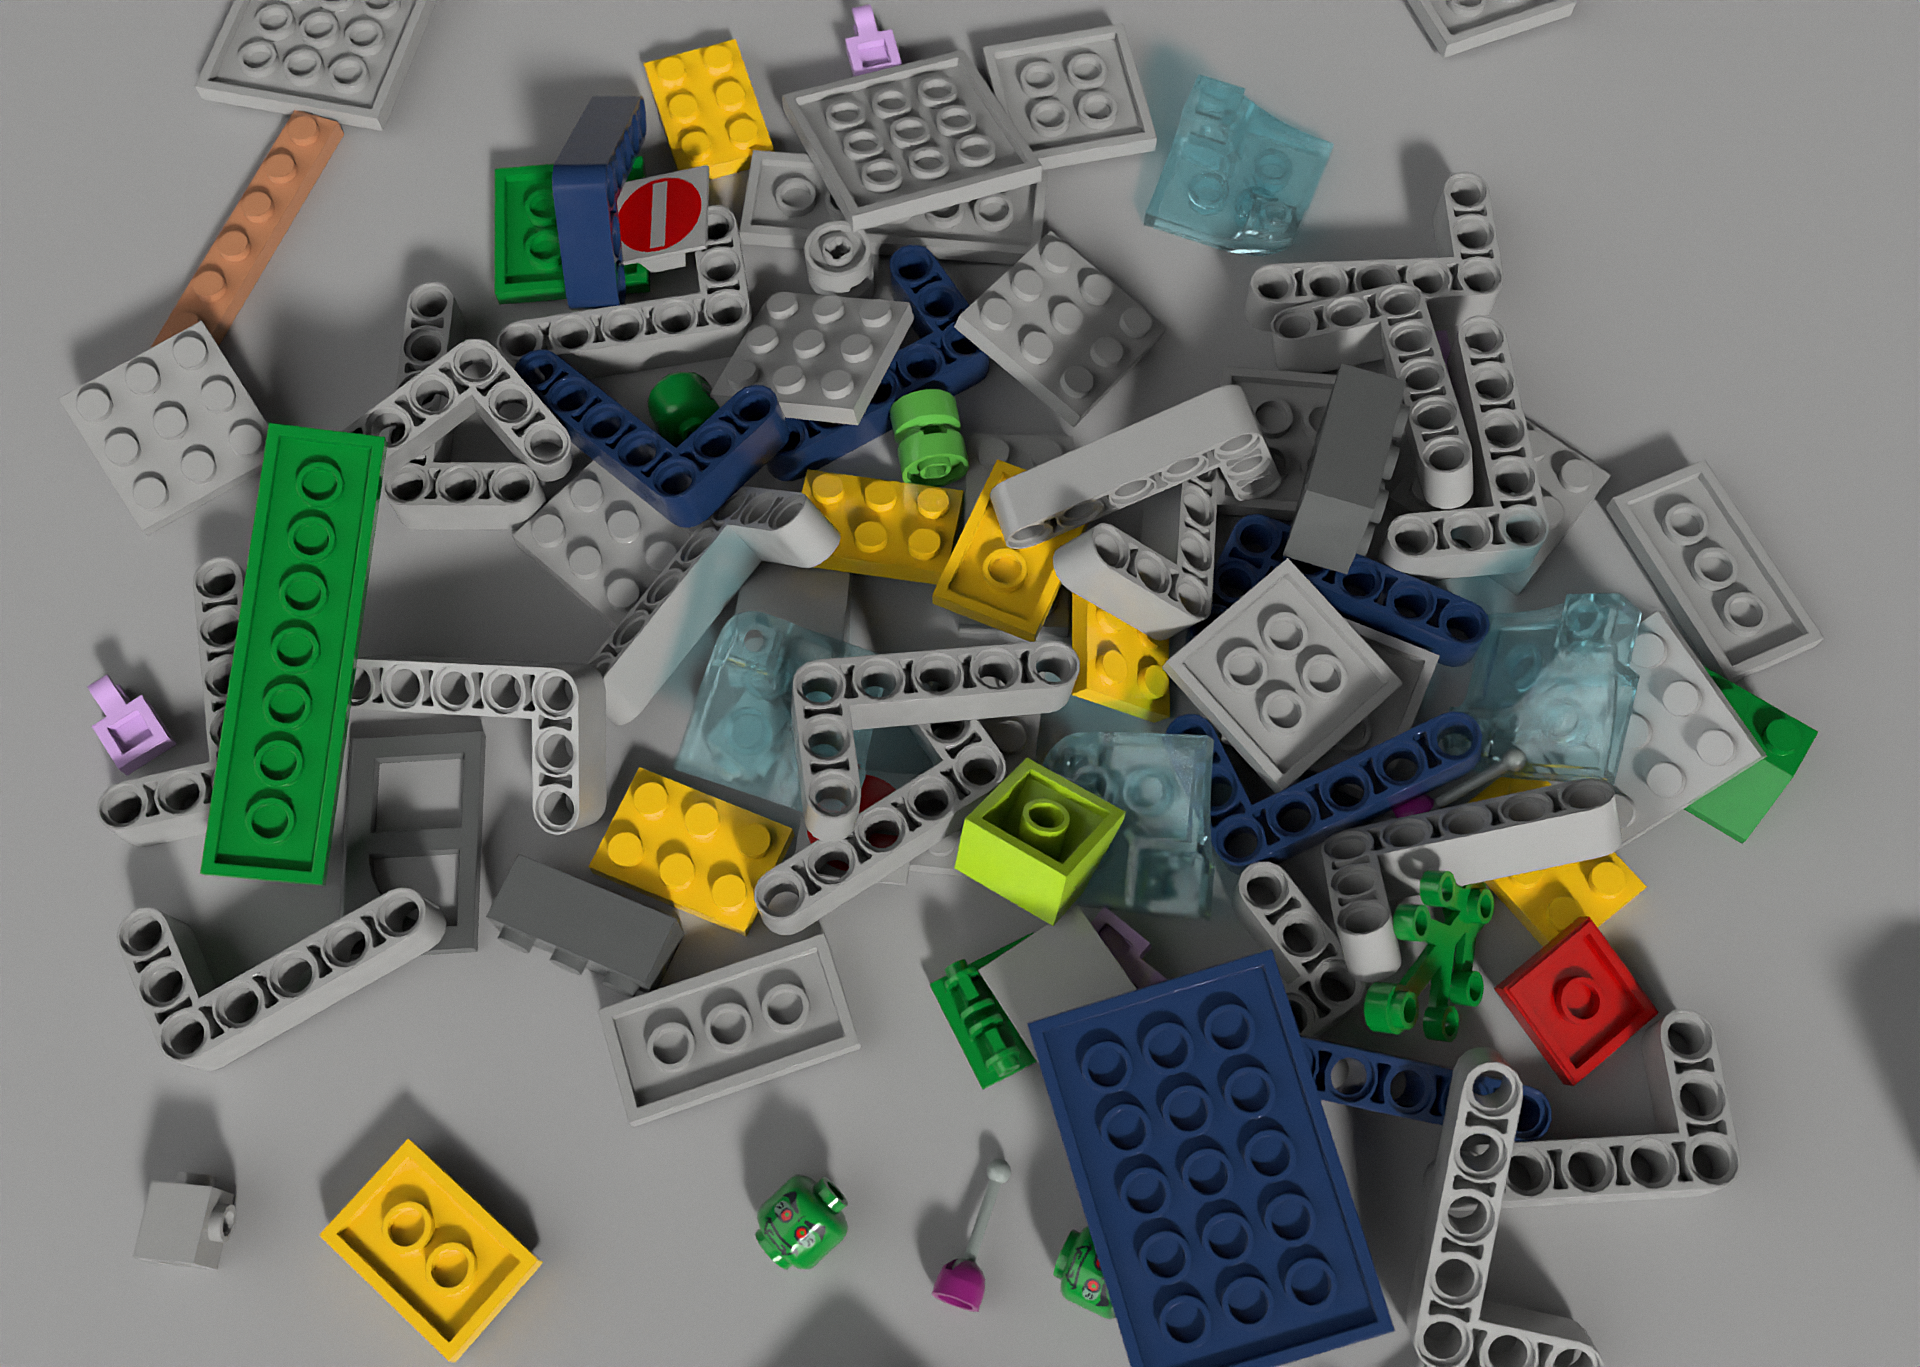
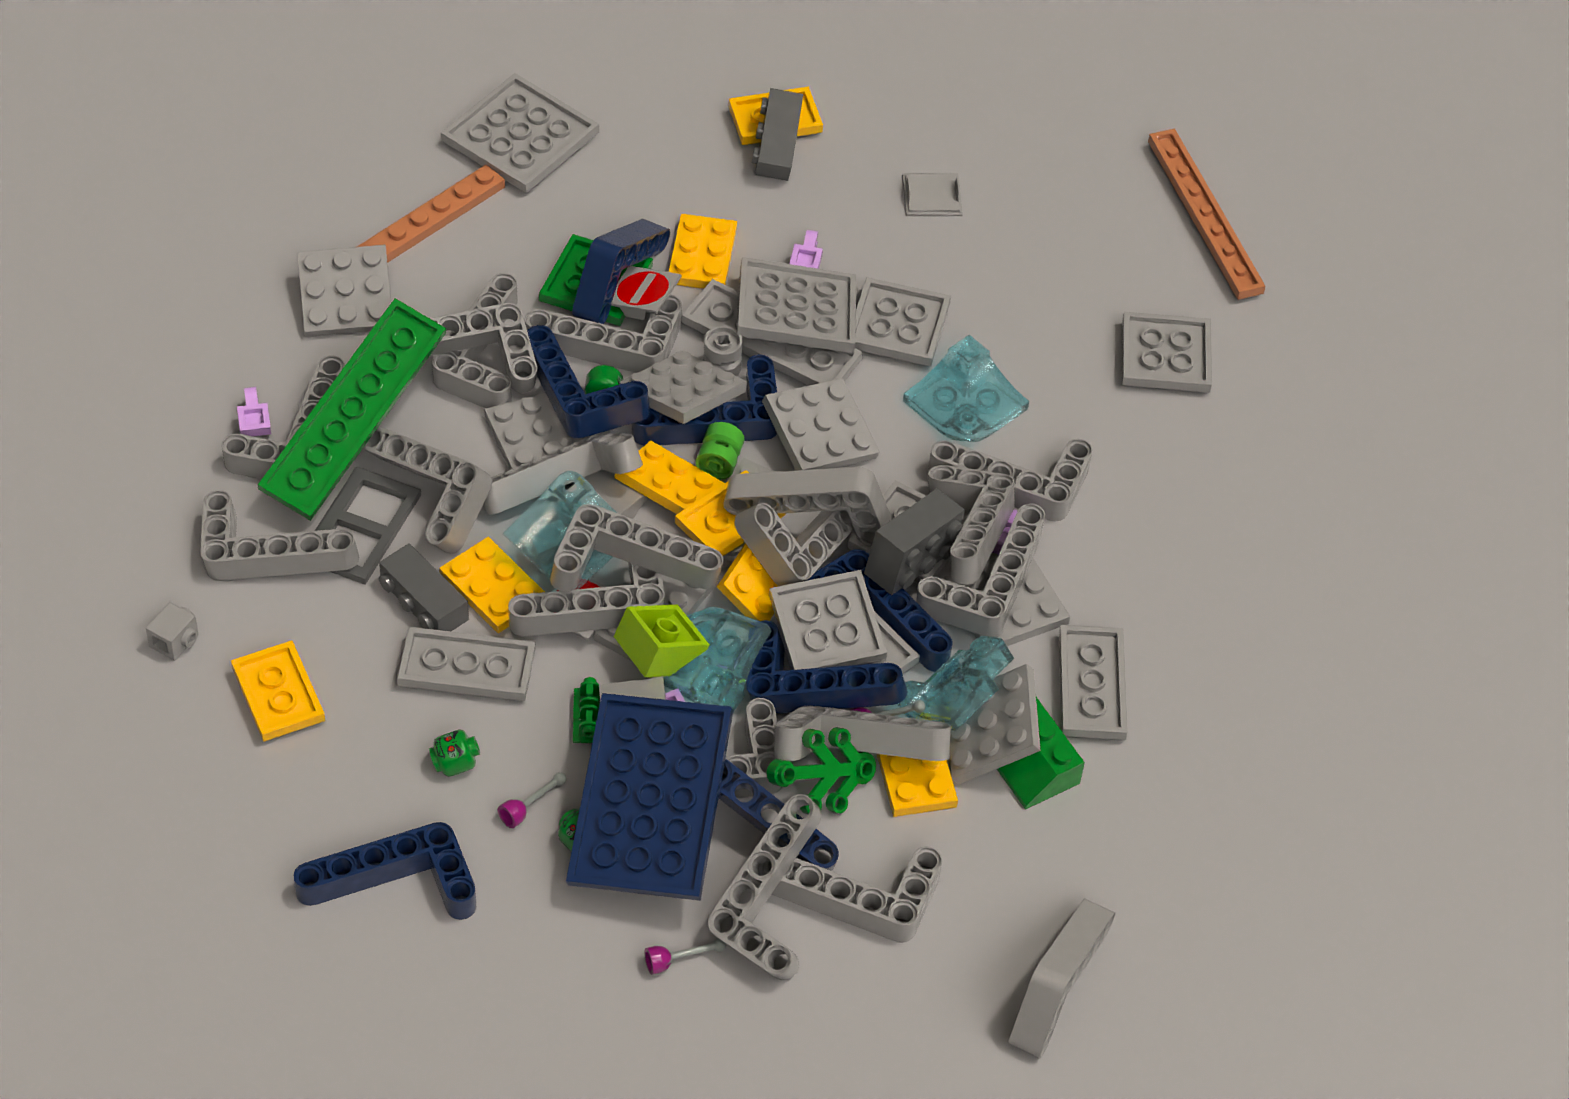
camera: 20 degrees right, 15 degrees down
(1576, 1000) = (886, 828): red tile -> none

